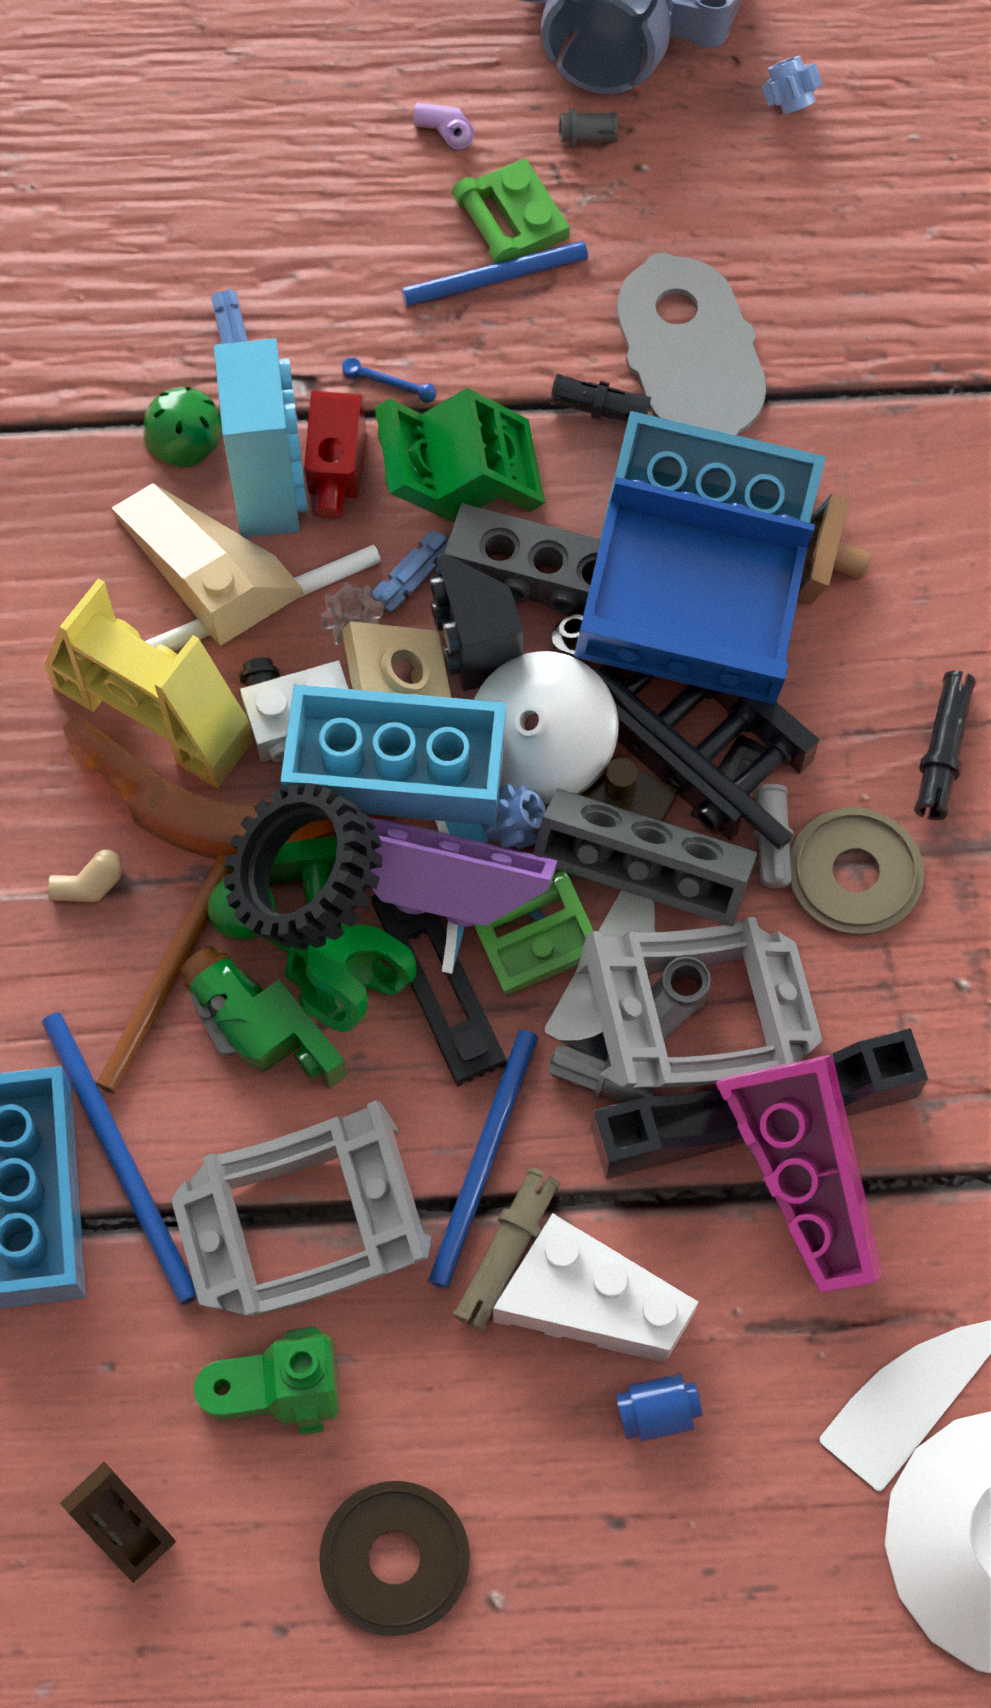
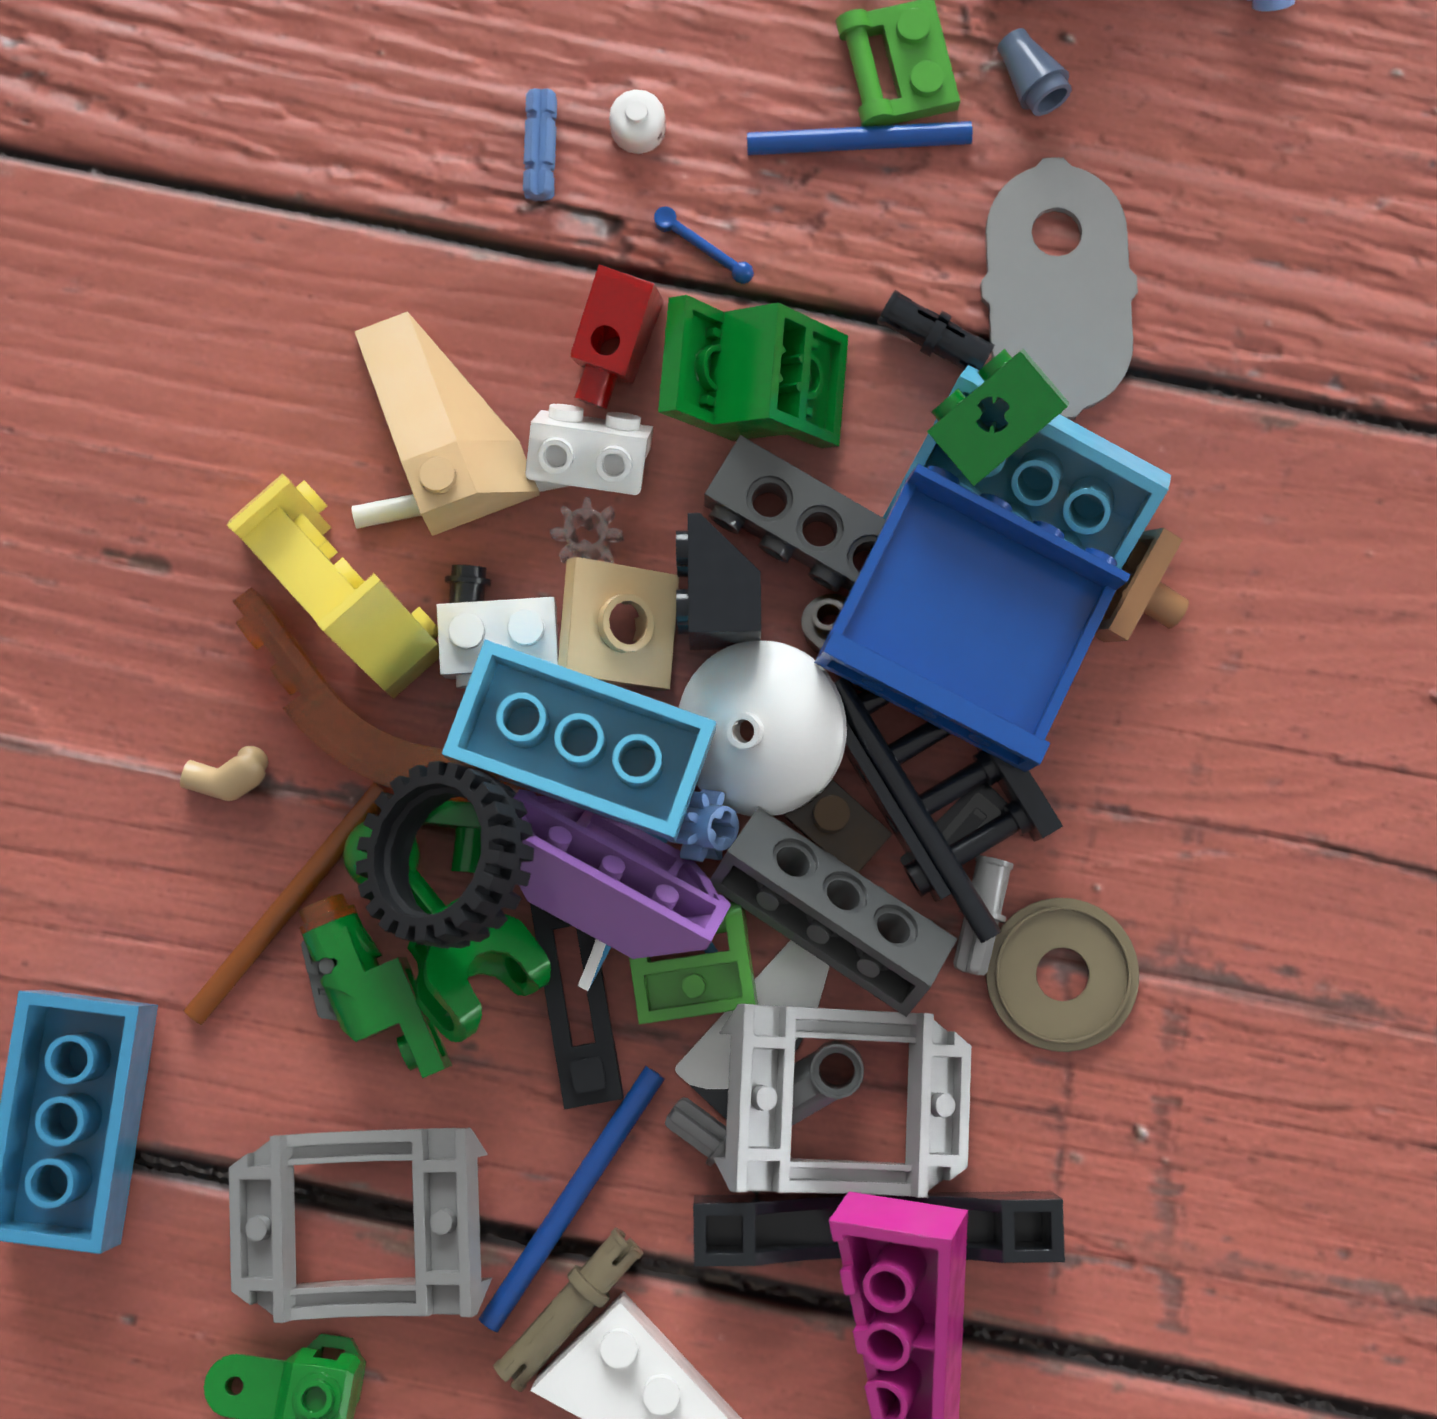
camera: 15 degrees right, 15 degrees up
(120, 1158) = (189, 1095): blue piece -> none
(182, 411) = (457, 237): green helmet -> none
(260, 437) = (522, 311): medium azure brick -> none
(309, 299) = (637, 121): none -> white piece
(336, 548) = (588, 450): none -> white bracket
(410, 571) = (667, 494): medium blue axle -> none
(624, 195) = (1035, 75): none -> sand blue cone
(695, 413) = (979, 447): none -> green brick
(941, 762) = (1203, 857): black pin -> none

